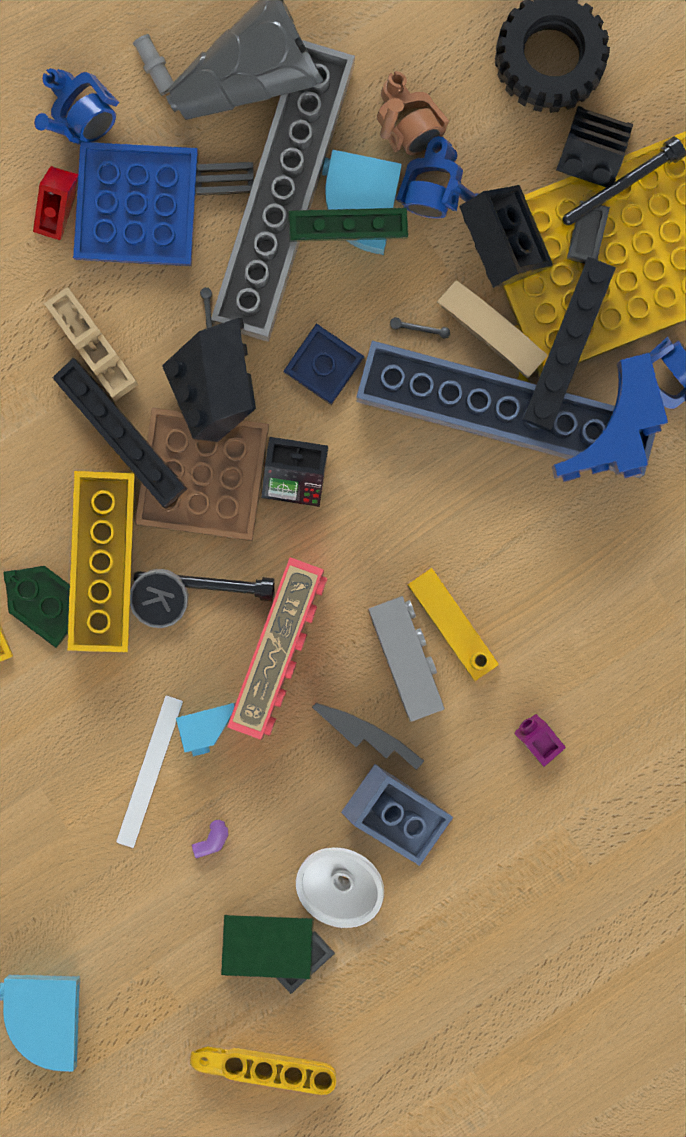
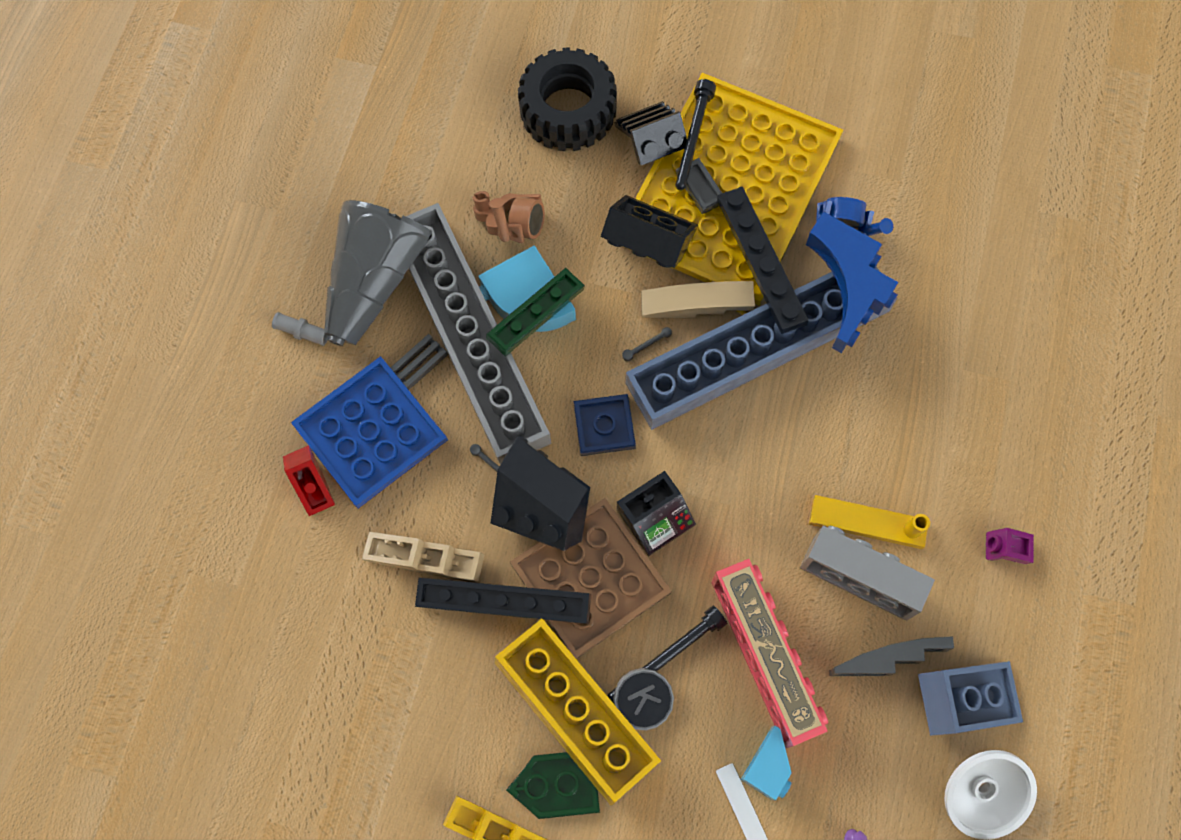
camera: 40 degrees left, 15 degrees down
(88, 117) = (282, 399): blue piece -> none
(430, 198) = (573, 251): blue piece -> none

